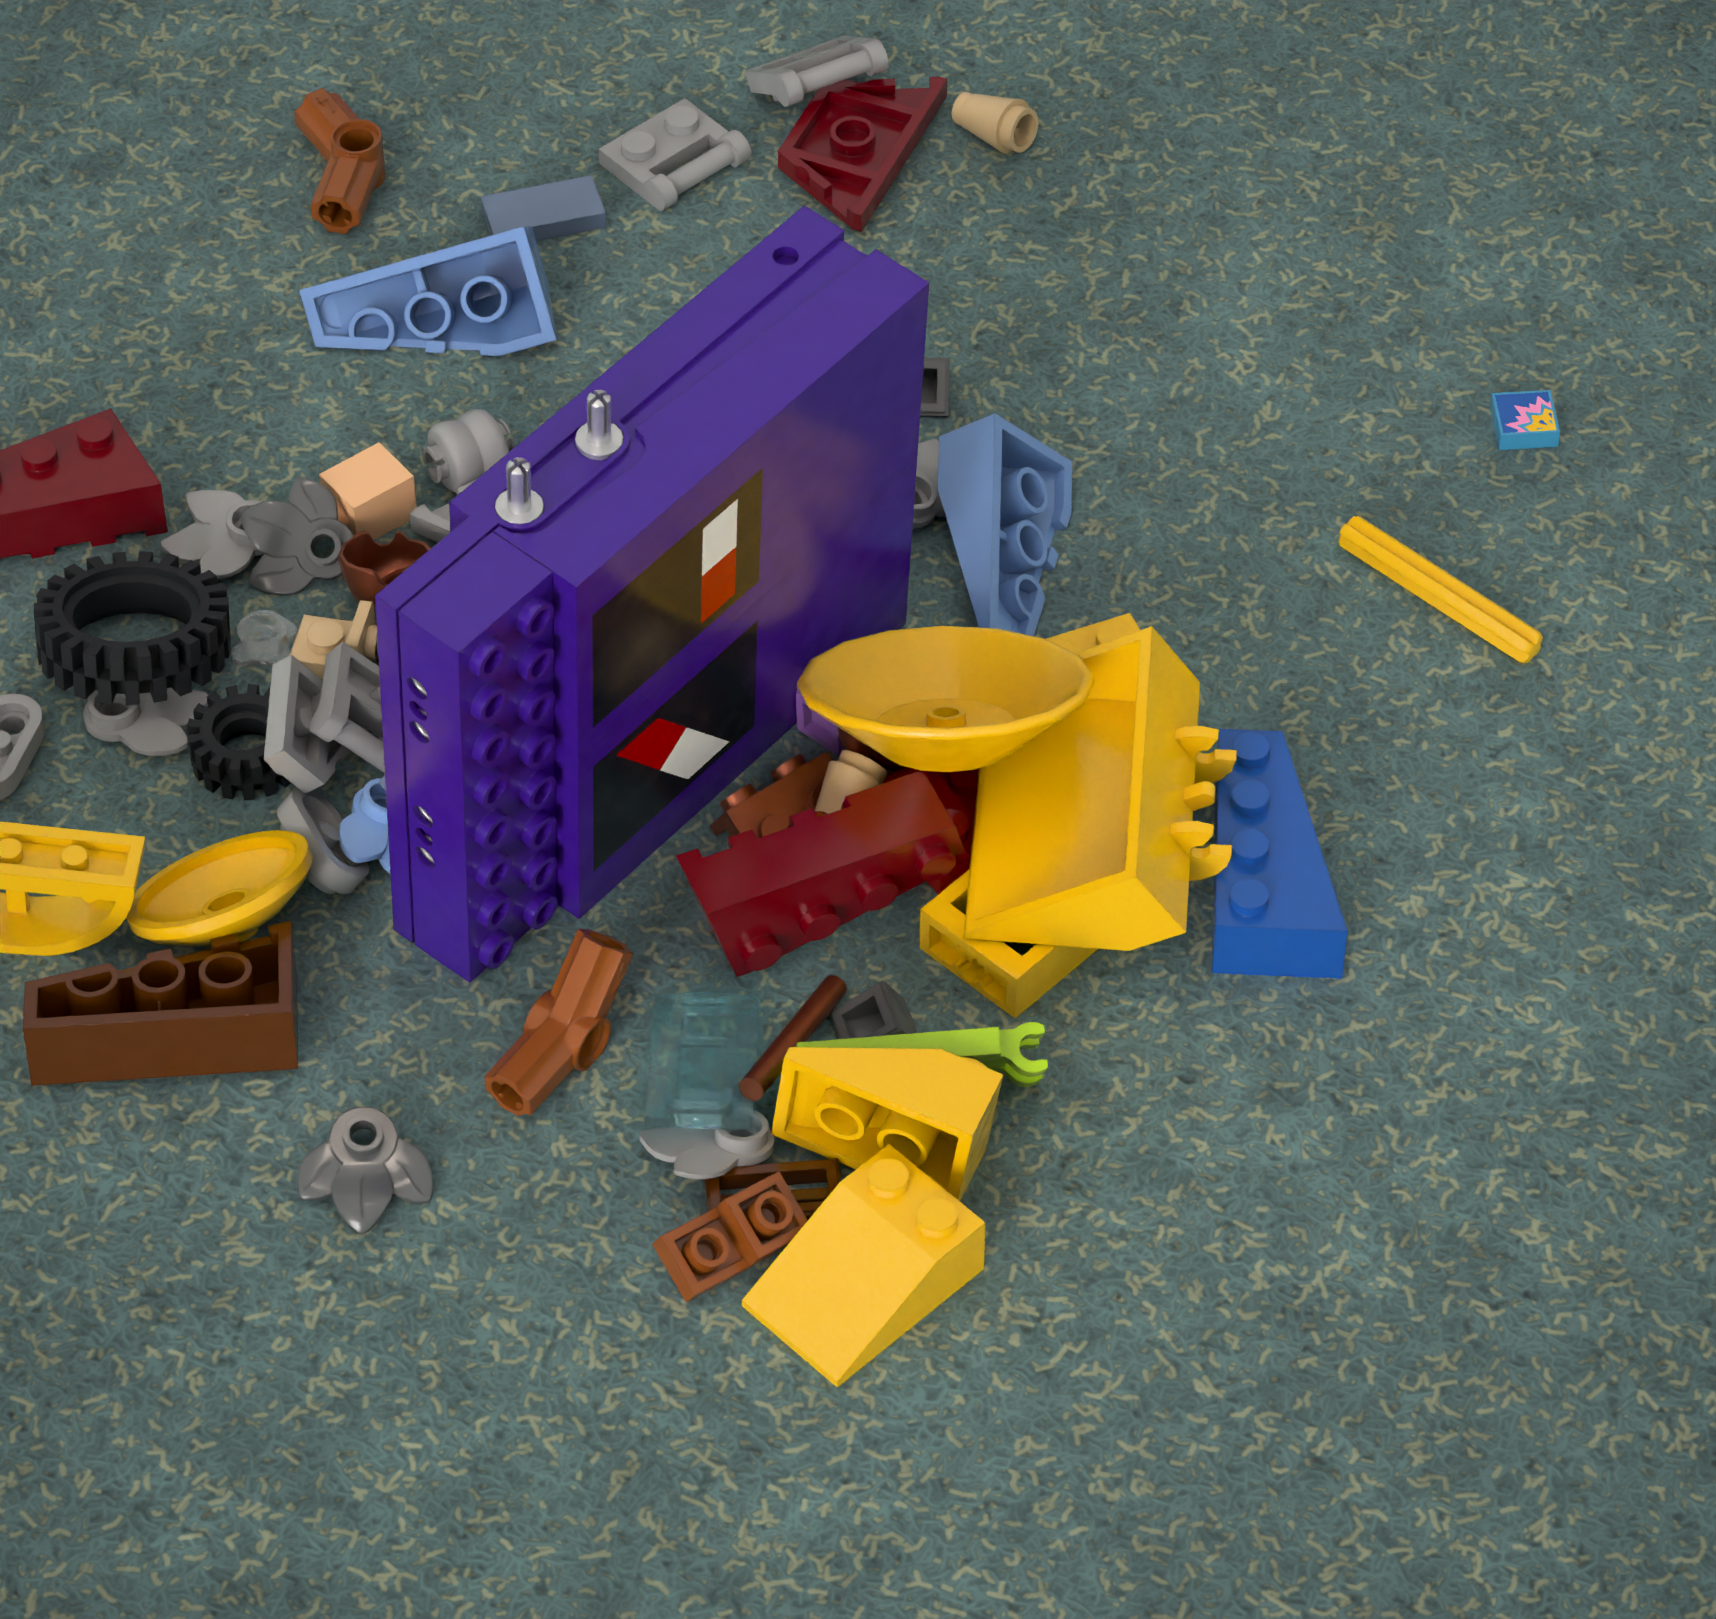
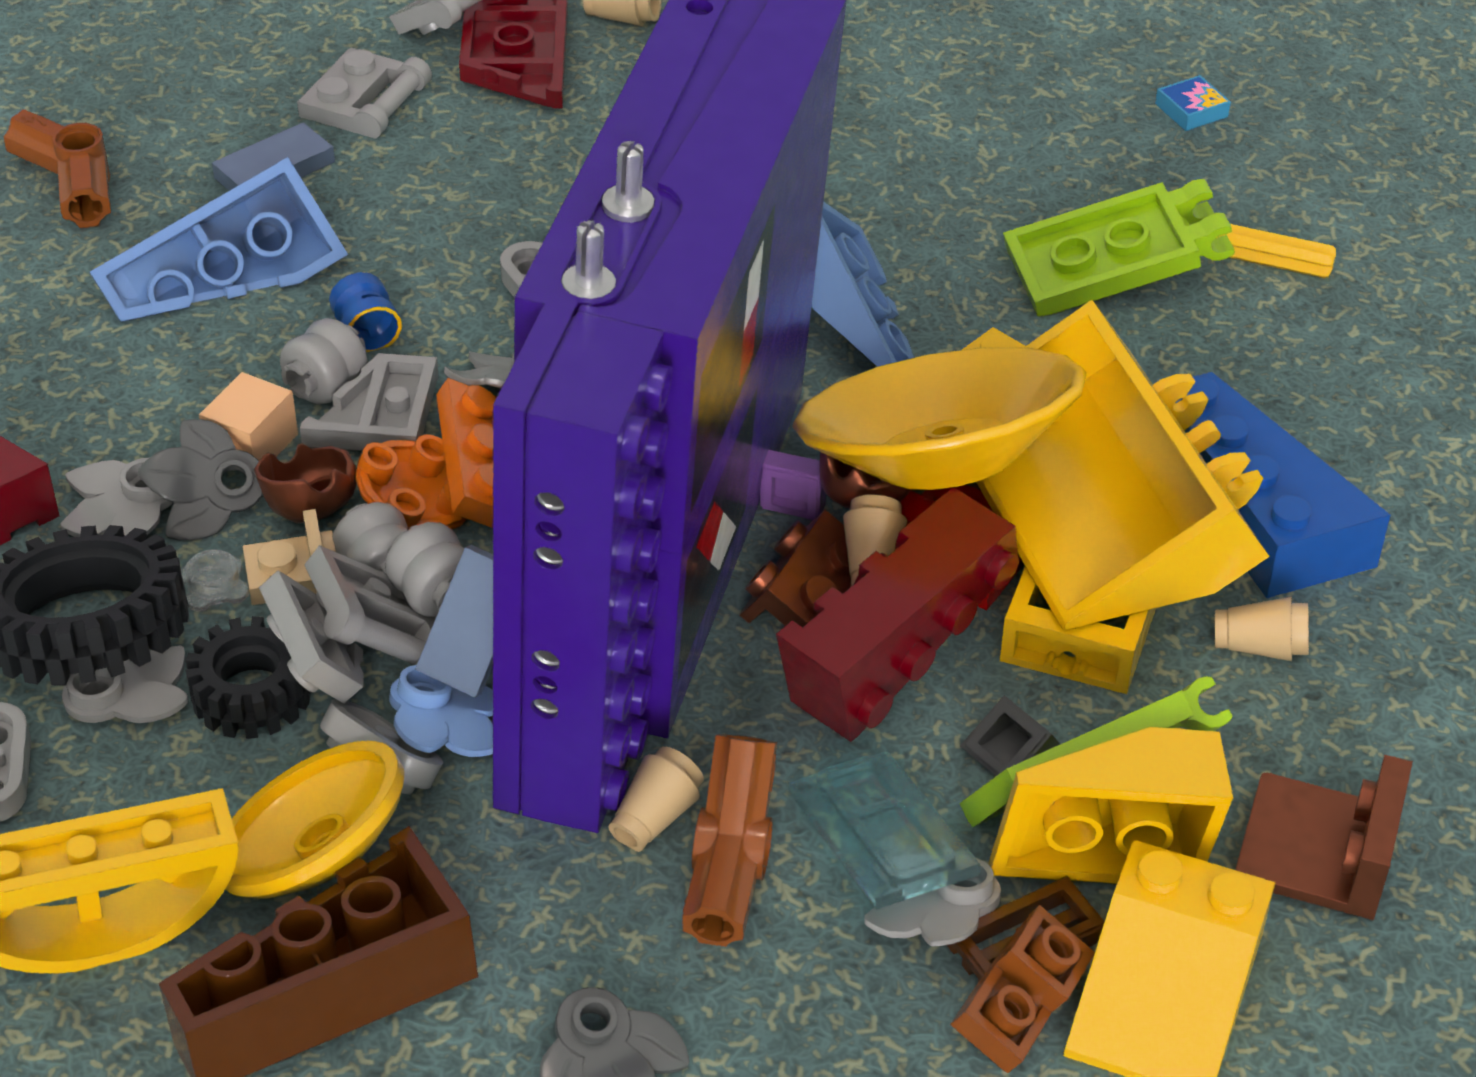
camera: 25 degrees left, 5 degrees down
(524, 968) = (656, 797): none -> tan cone
(532, 400) = (365, 306): none -> blue wheel
(798, 1029) = (956, 778): copper bar -> none
(1086, 1206) = (1326, 841): none -> copper bracket
(1177, 1001) = (1265, 628): none -> tan cone
(1310, 563) = (1117, 245): none -> lime tile

